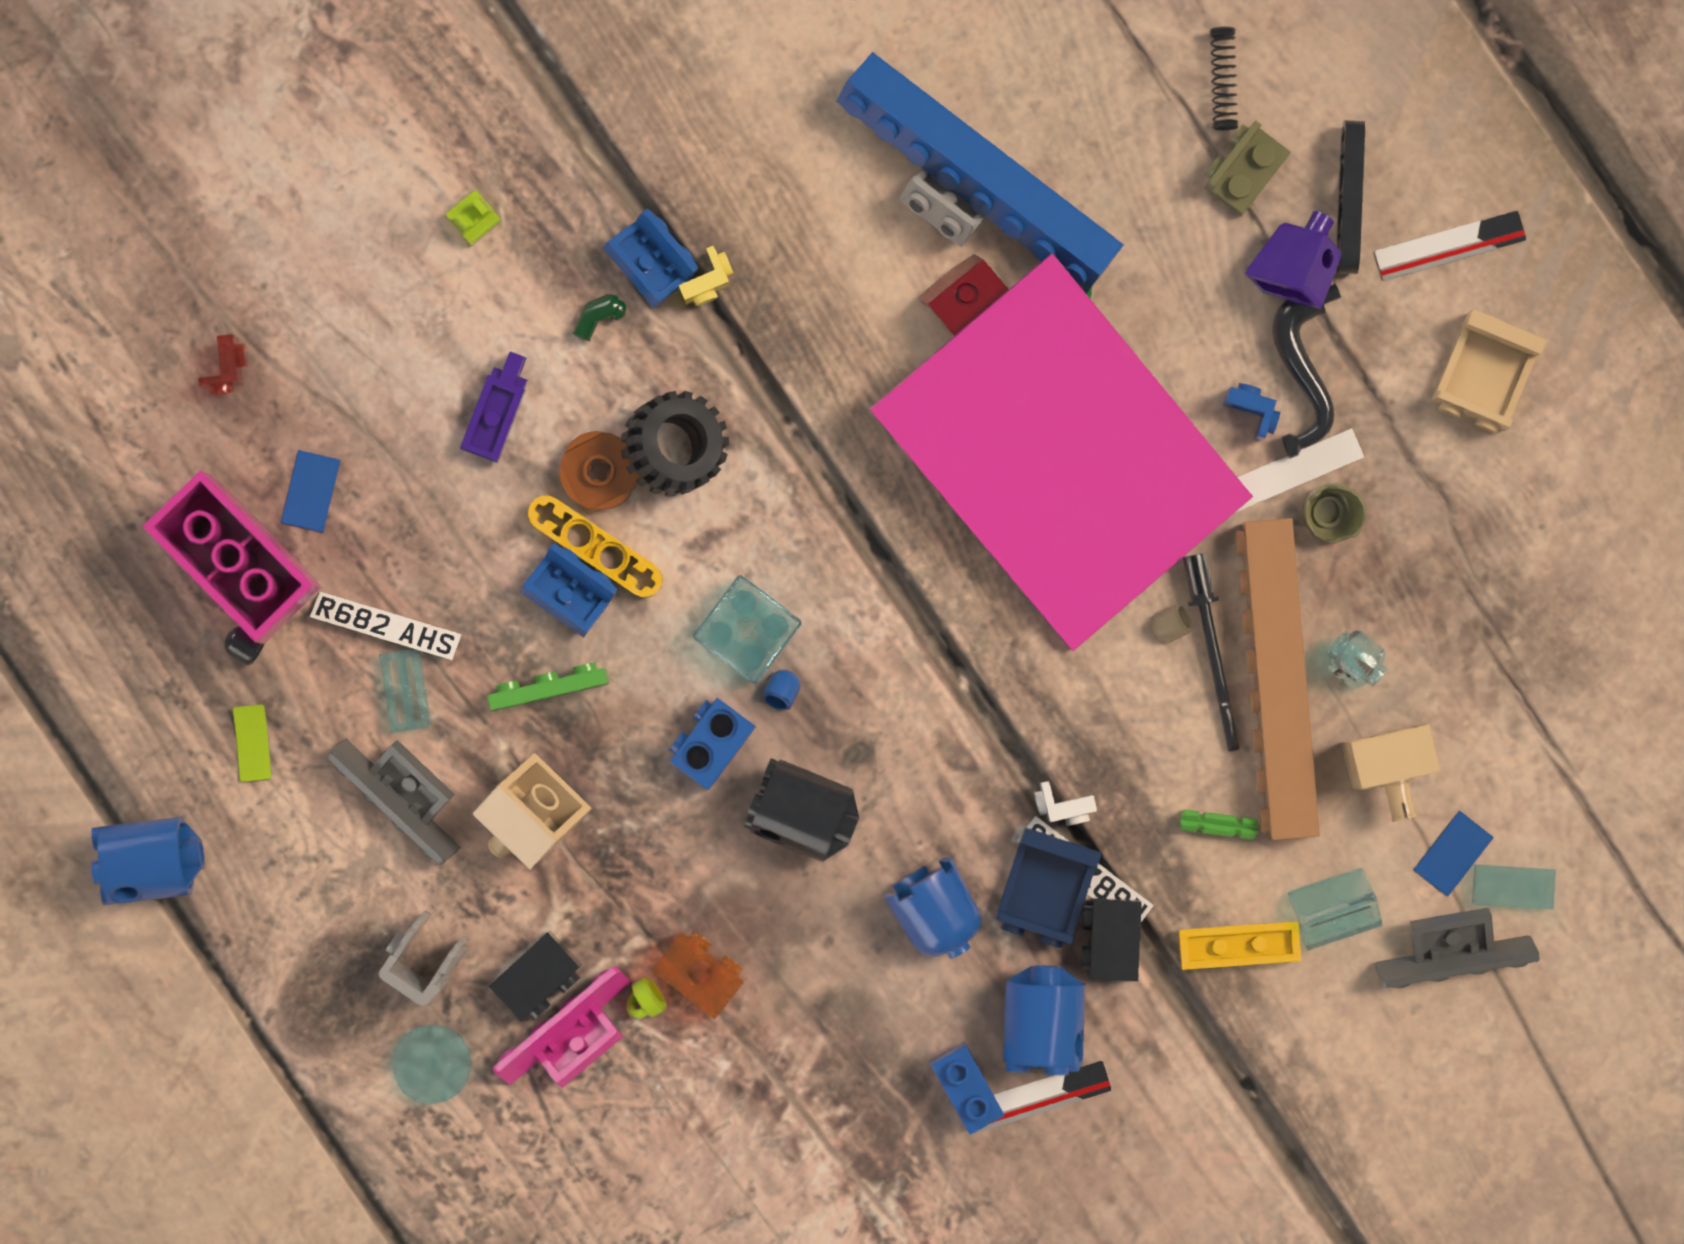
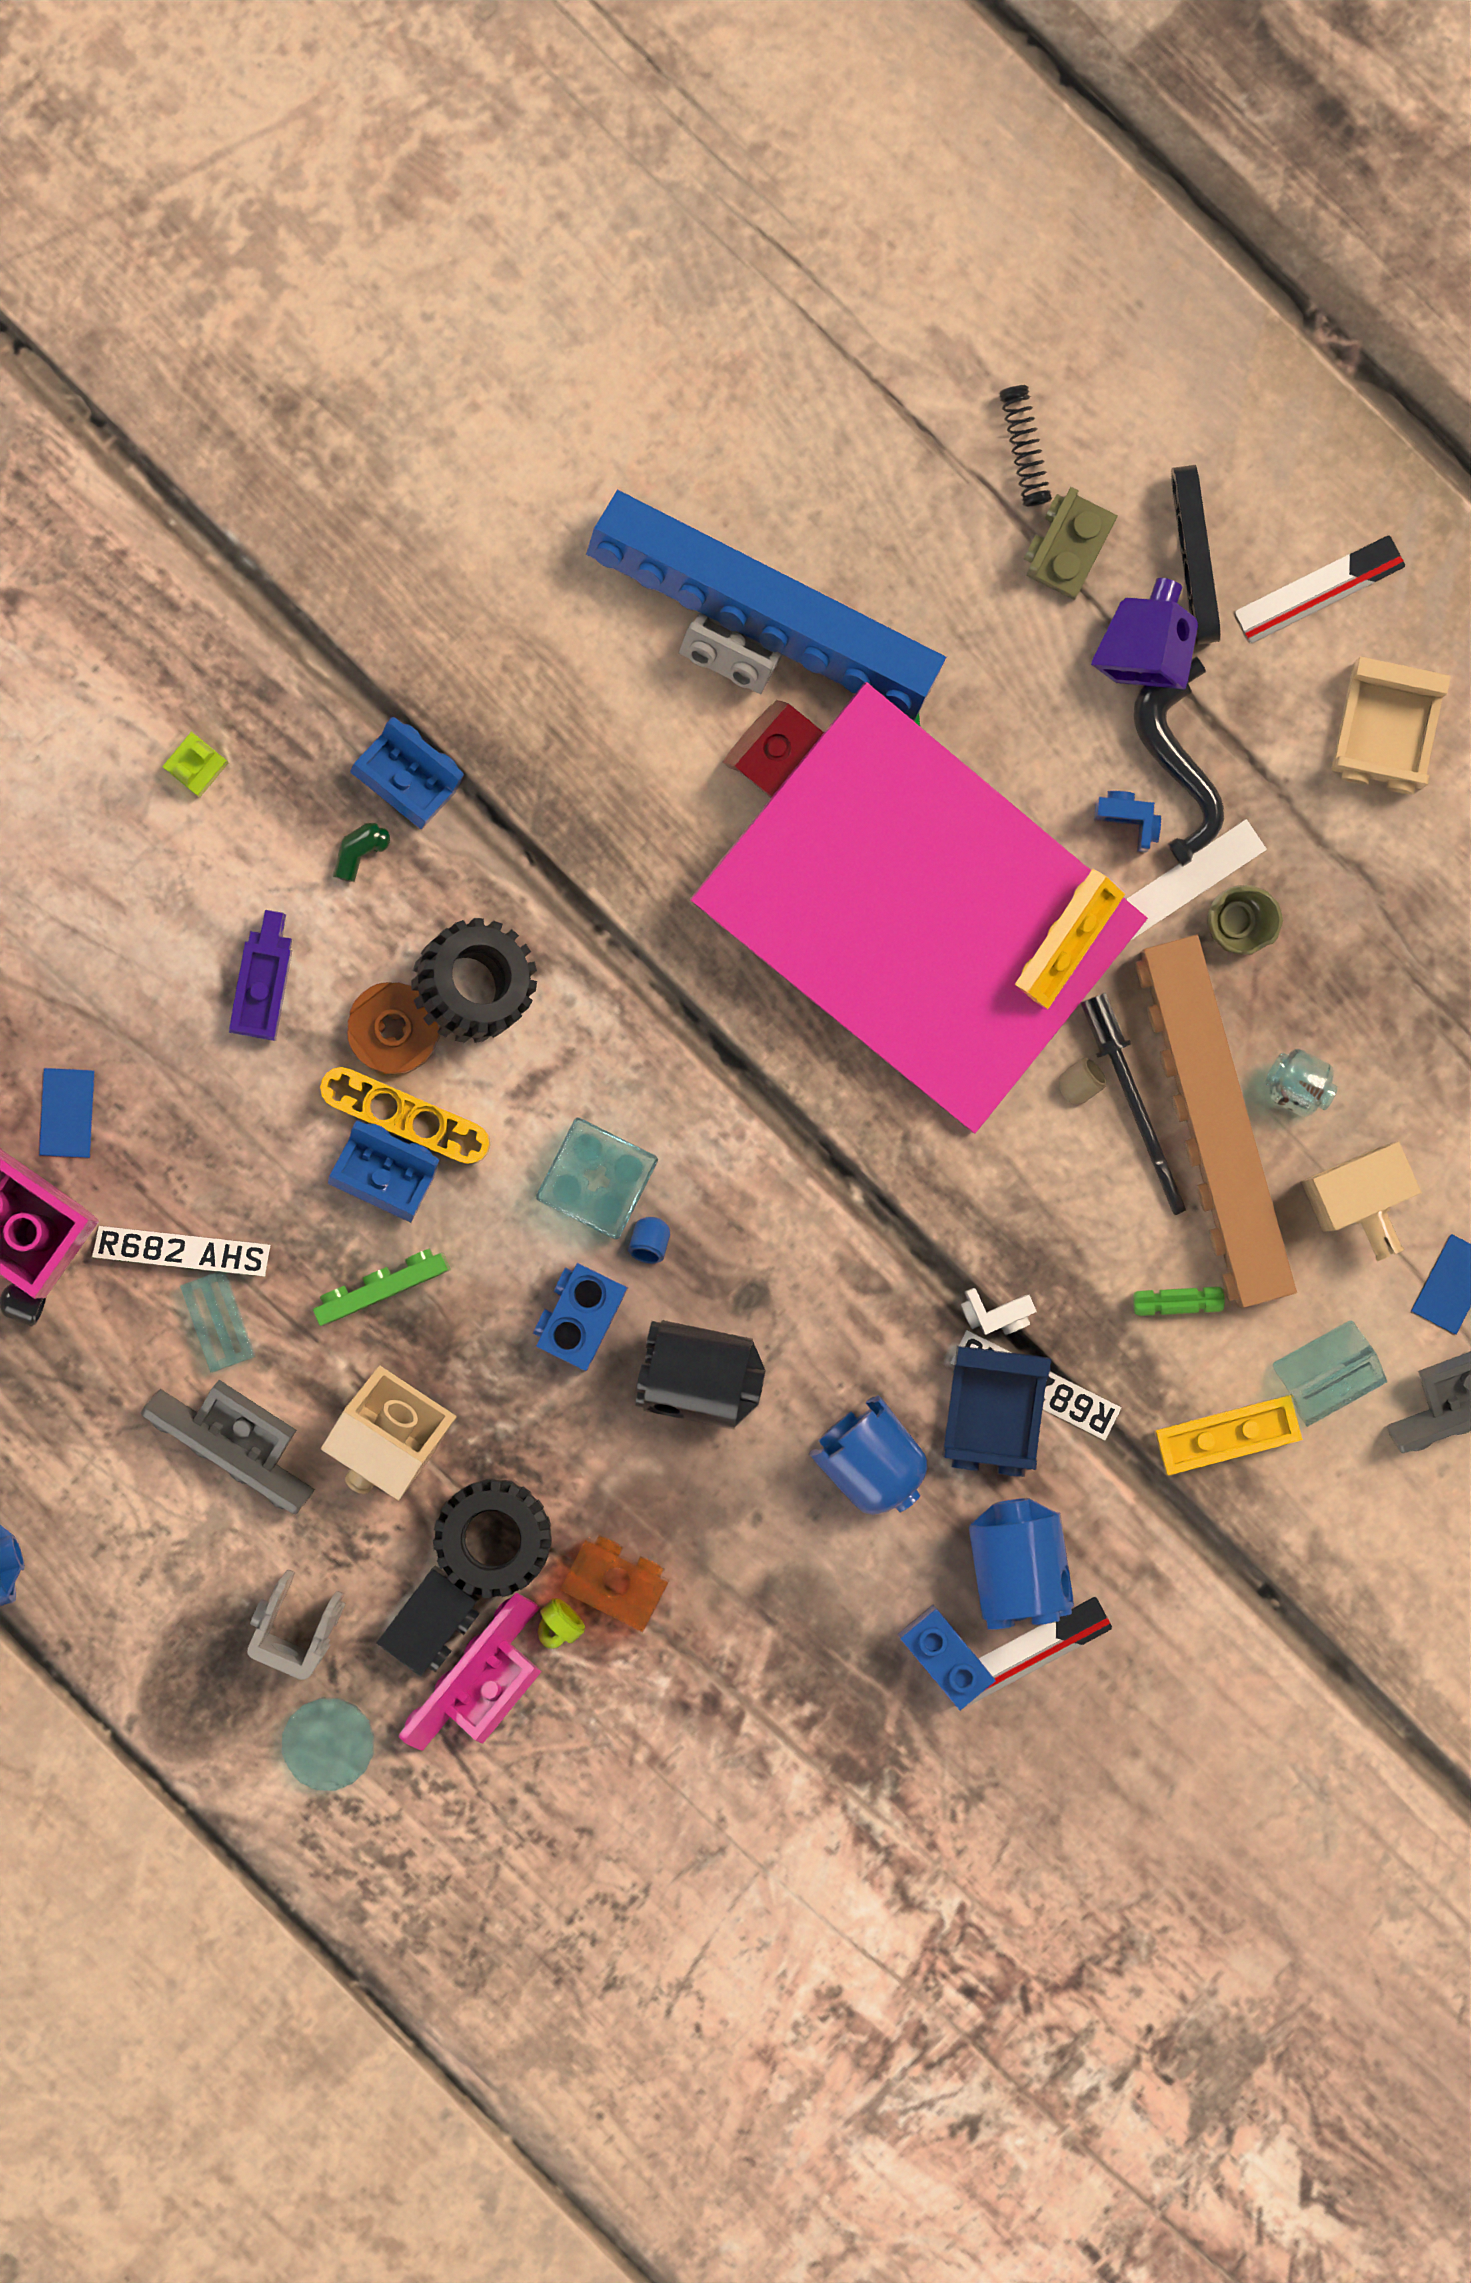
camera: 10 degrees left, 0 degrees up
(252, 743) = (53, 1414): lime sticker -> none
(567, 916) = (482, 1578): none -> black tyre
(704, 288) = (474, 796): light yellow bracket -> none
(1112, 939) = (1082, 1455): black brick -> none
(1183, 501) = (1070, 938): none -> yellow plate

